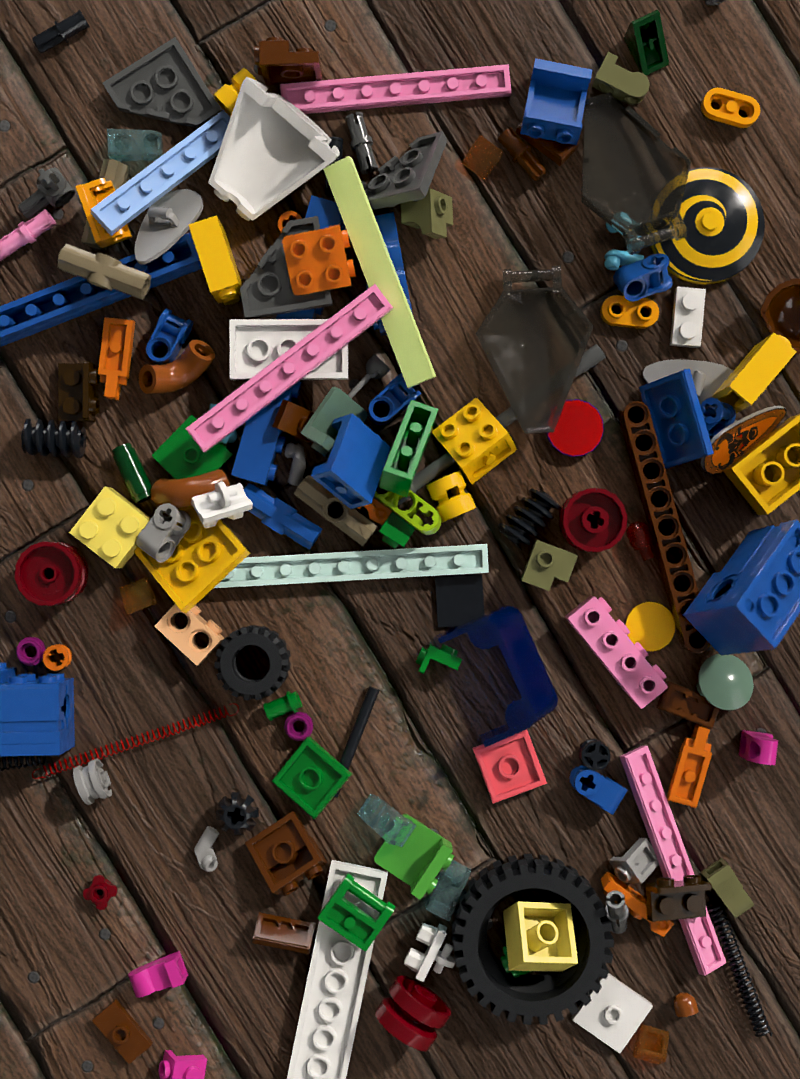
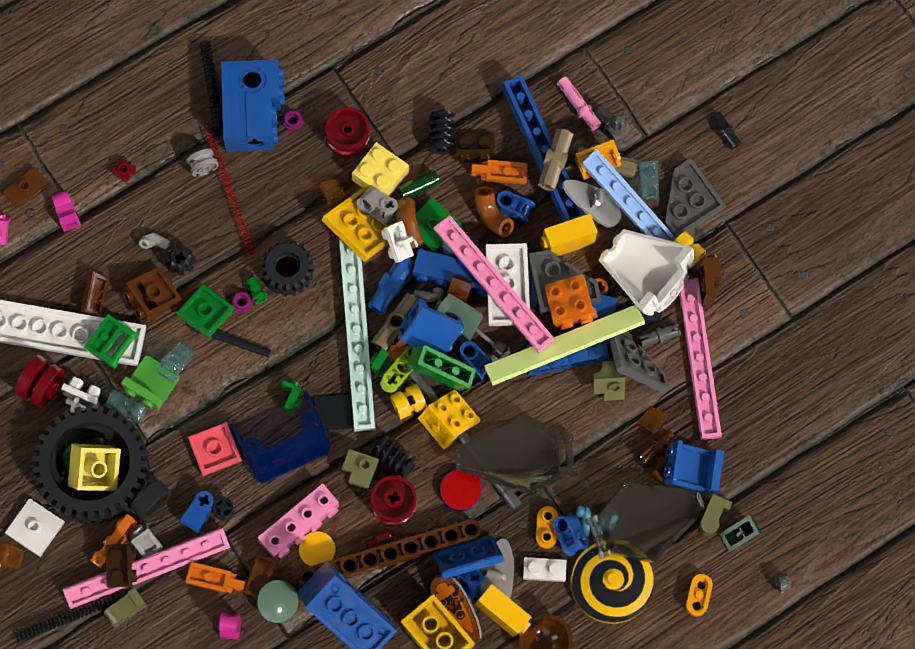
camera: 80 degrees right, 15 degrees down
(60, 649) = (287, 131): orange bush -> none
(185, 637) = (304, 223): light nougat brick -> none
(584, 856) = (150, 499): none -> black tyre
(617, 912) = (111, 522): dark grey pin -> none
(685, 1005) = (40, 579): dark orange hinge -> none

